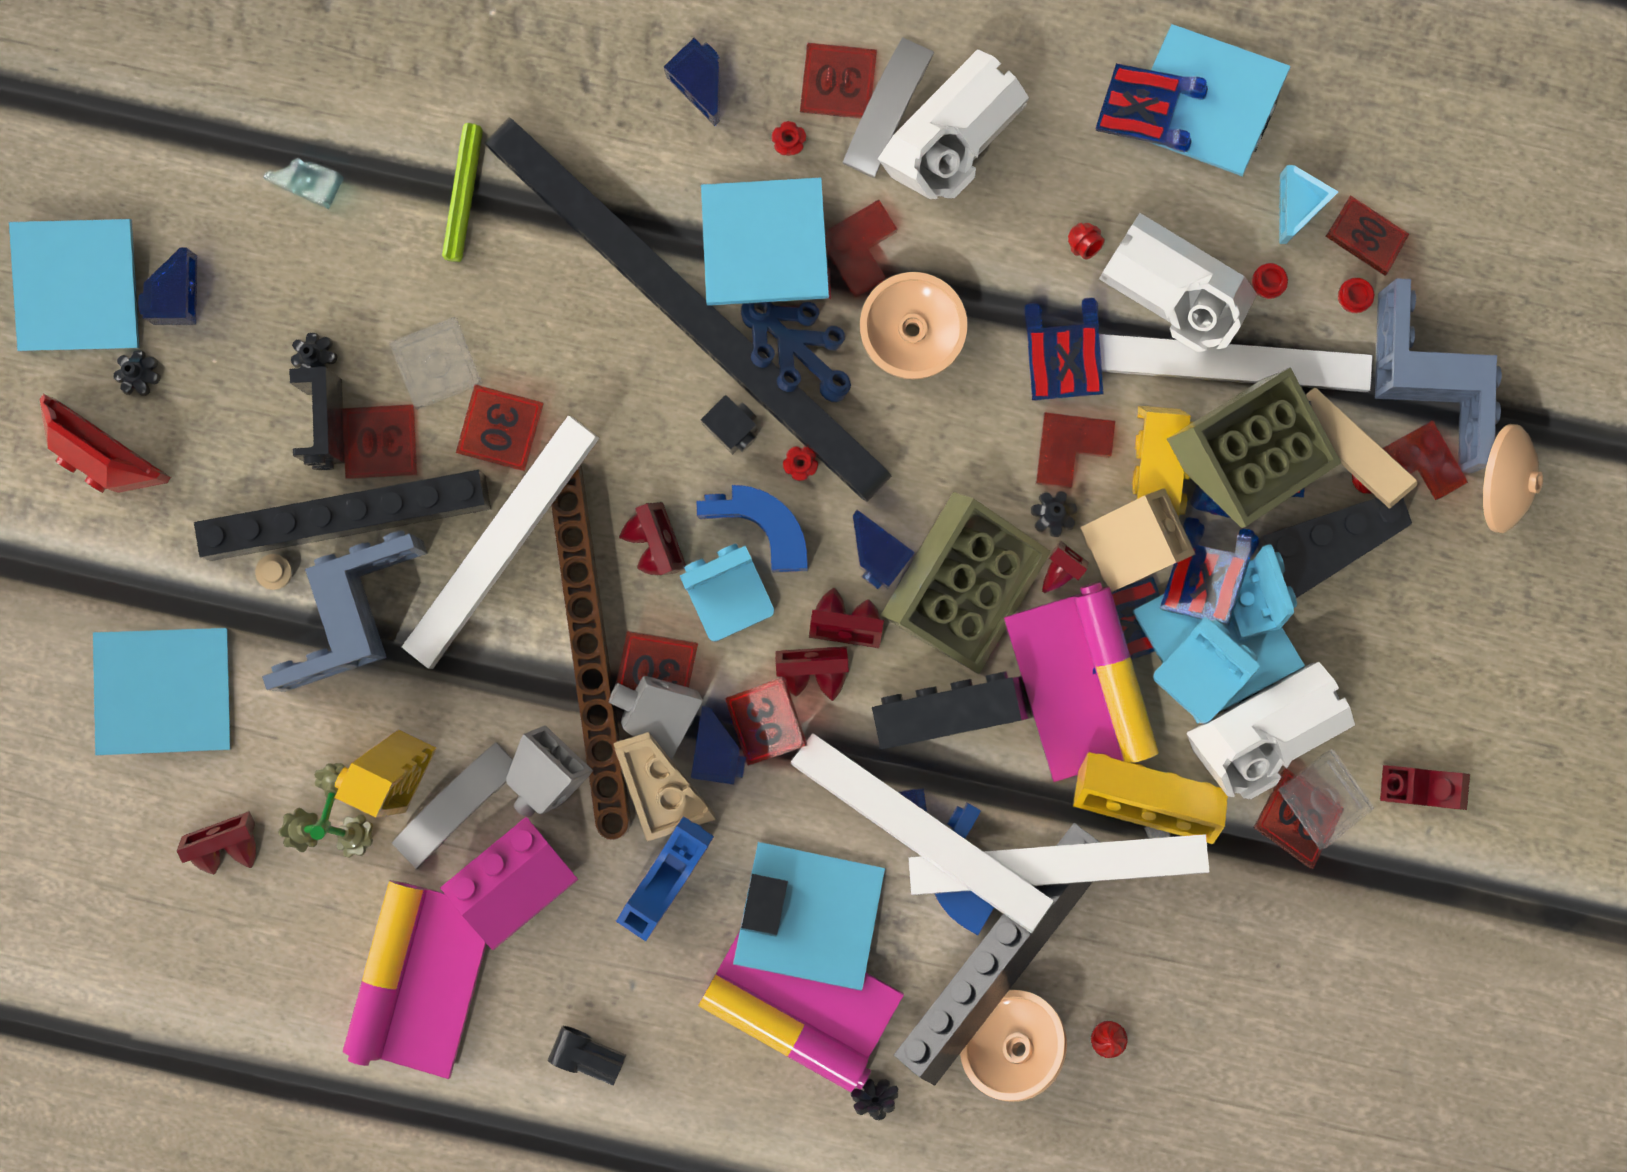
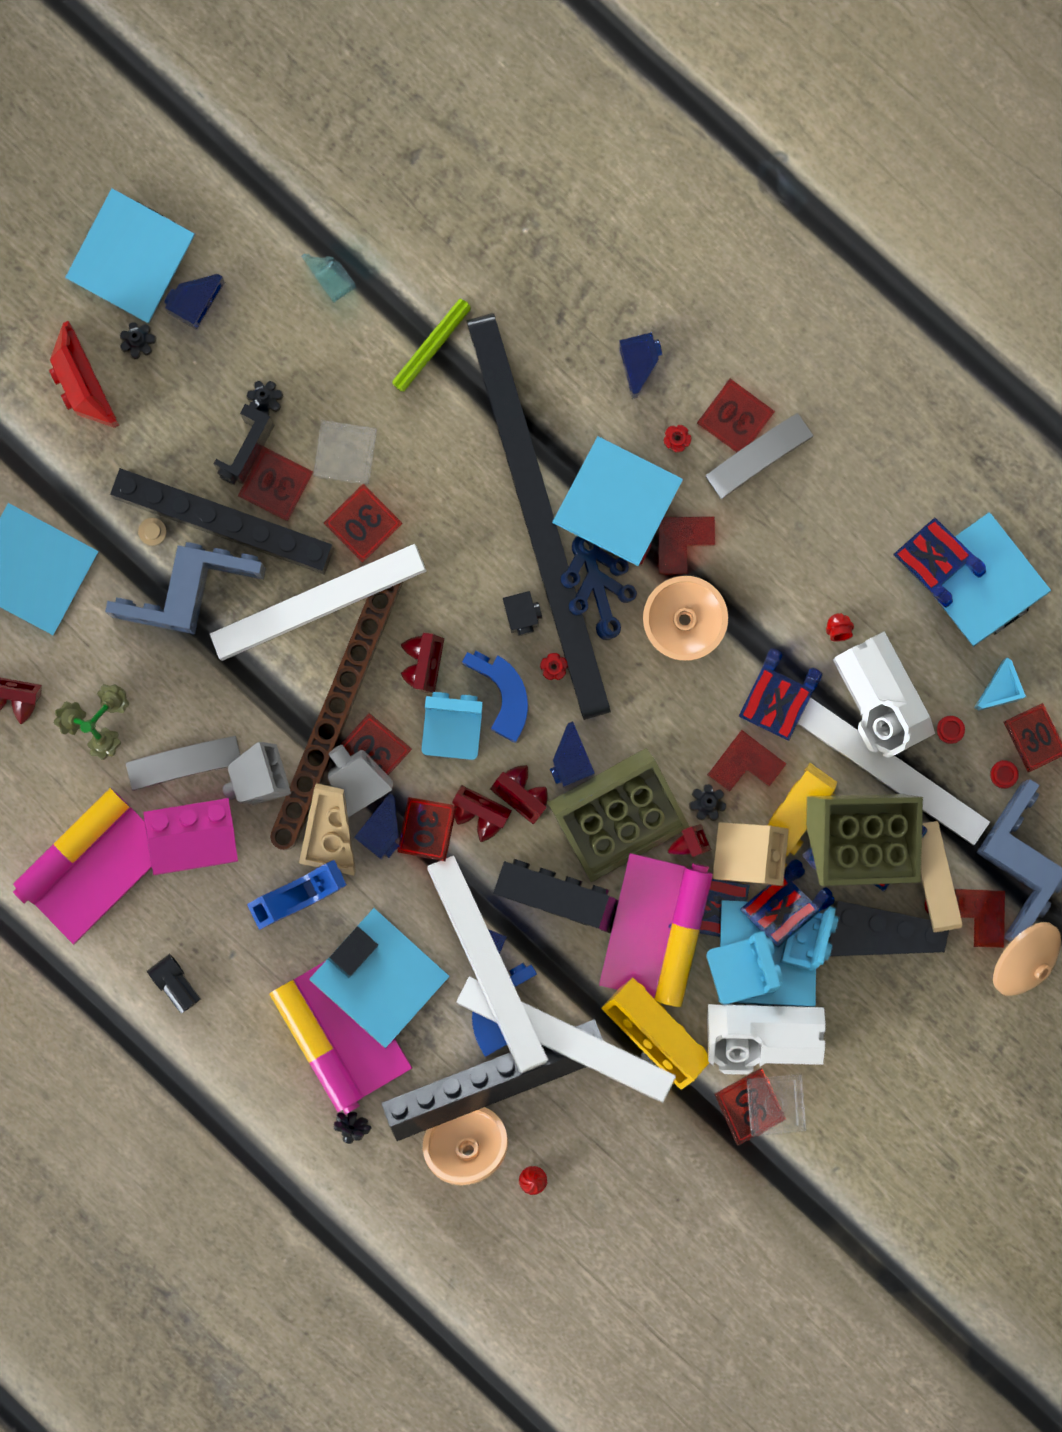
camera: 25 degrees right, 0 degrees up
(385, 776) = (152, 715): yellow wedge -> none
(953, 127) = (792, 498): white brick -> none
(1425, 787) = (849, 1137): dark red slope -> none

